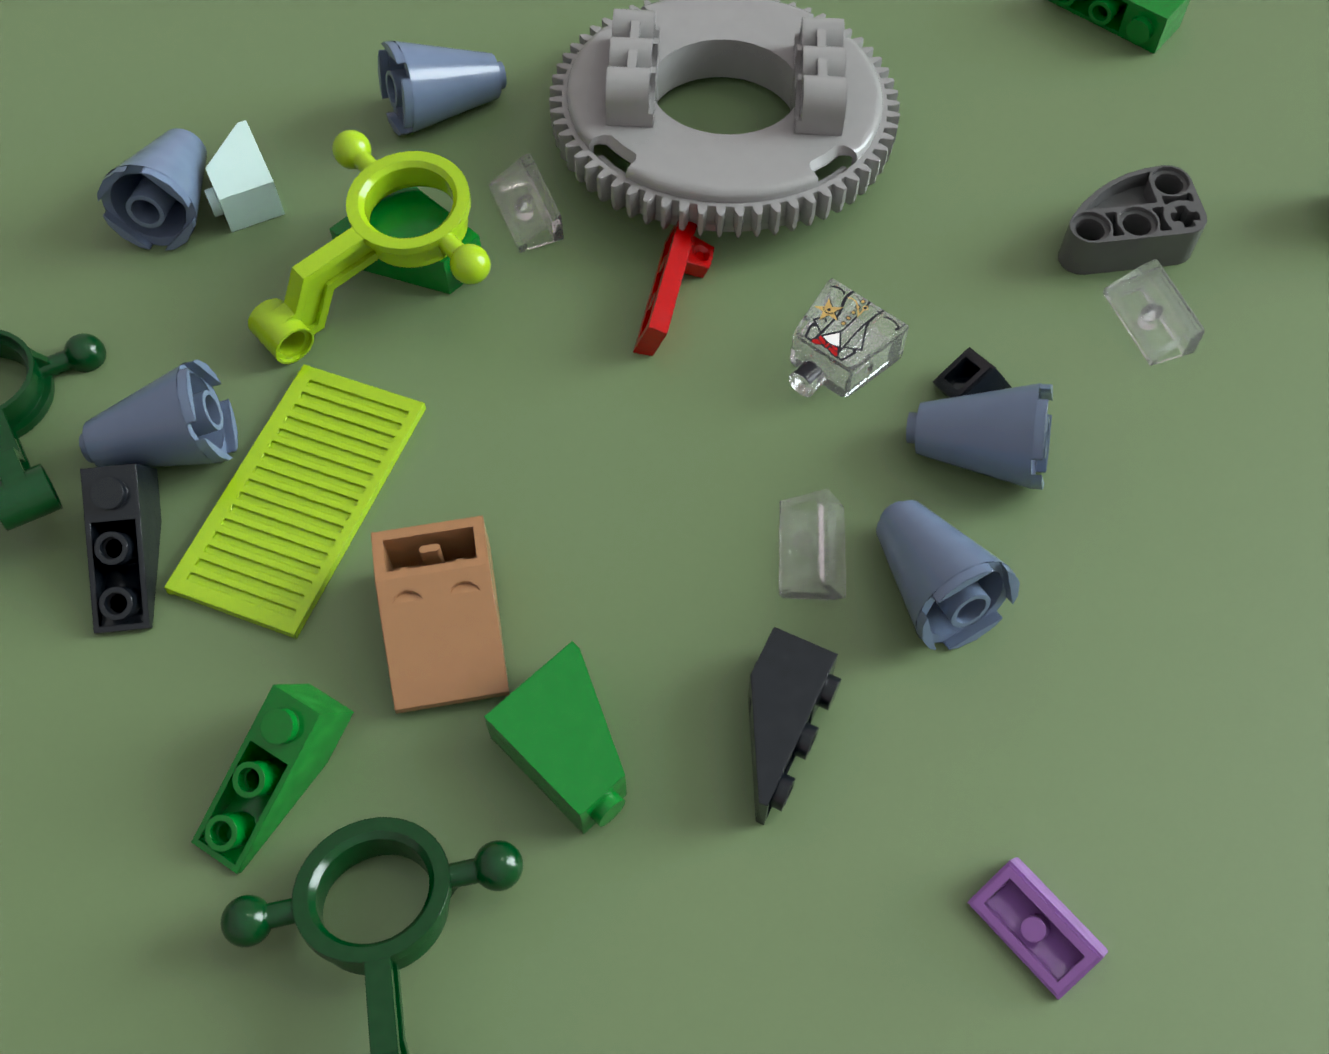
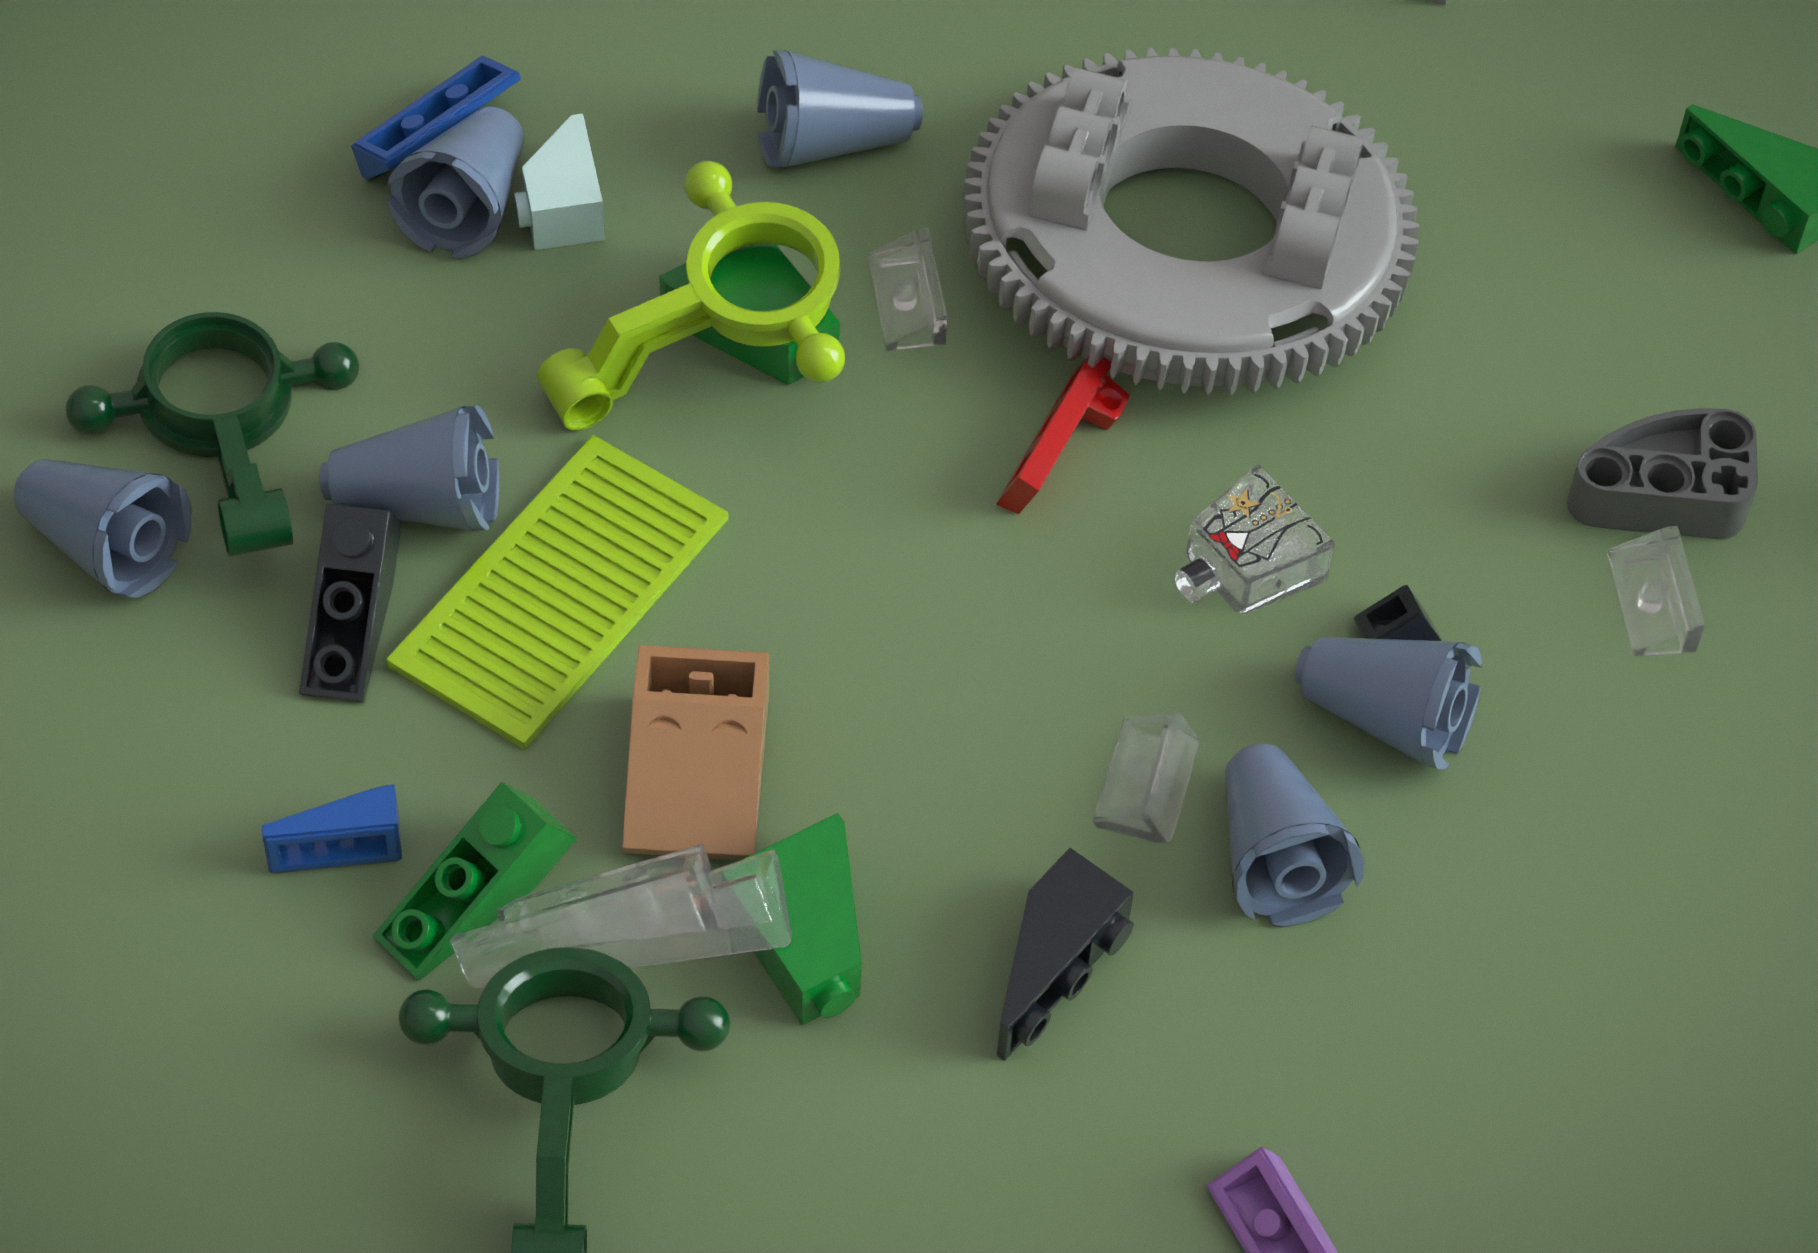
camera: 10 degrees right, 5 degrees down
(145, 755) = (336, 834): none -> blue slope
(151, 123) = (431, 115): none -> blue slope
(421, 774) = (641, 915): none -> clear wedge

